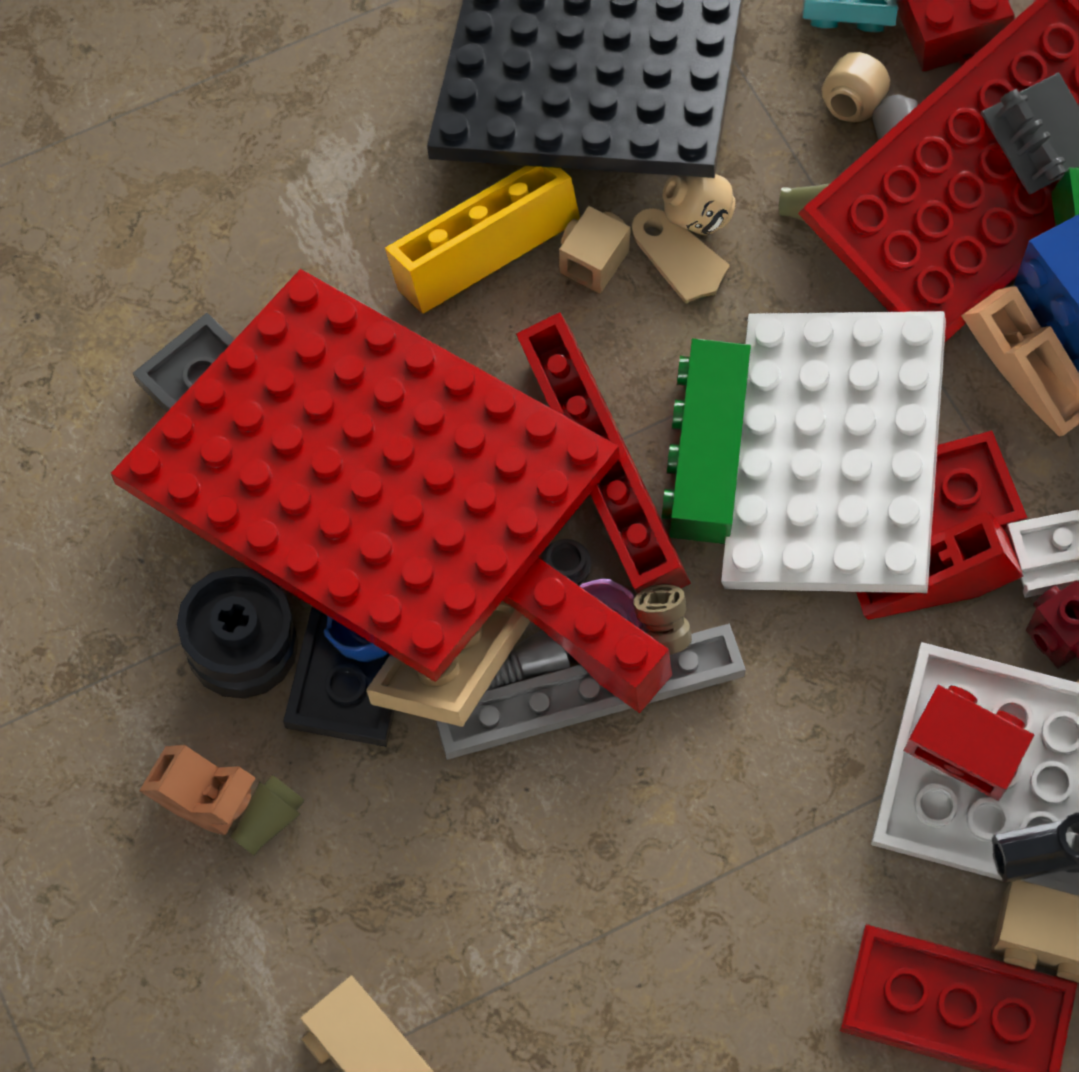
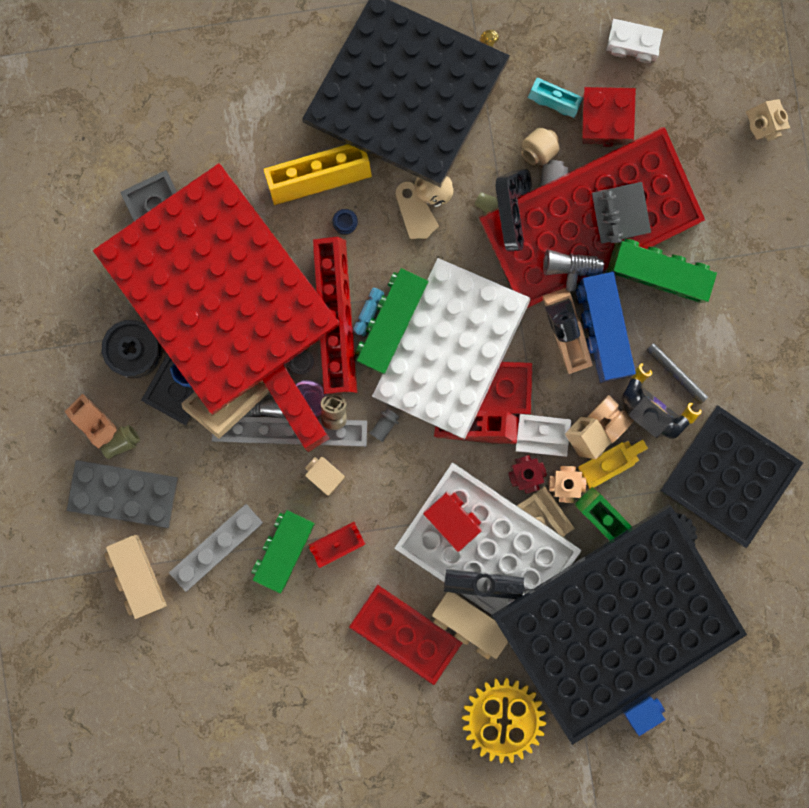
camera: 15 degrees right, 20 degrees up
(300, 915) = (122, 494): none -> dark grey plate
(520, 960) = (216, 547): none -> light grey plate
(560, 298) = (345, 221): none -> dark blue plate
(593, 248) = (372, 195): tan brick -> none
(657, 441) = (368, 312): none -> medium azure axle
(657, 918) = (282, 551): none -> green brick
(685, 749) = (324, 475): none -> tan brick
(759, 874) = (336, 544): none -> red hinge
(764, 625) = (384, 425): none -> dark grey pin
(845, 156) = (507, 190): none -> black beam
(996, 239) = (573, 265): none -> flat silver piece
(1027, 323) = (563, 320): none -> black leg

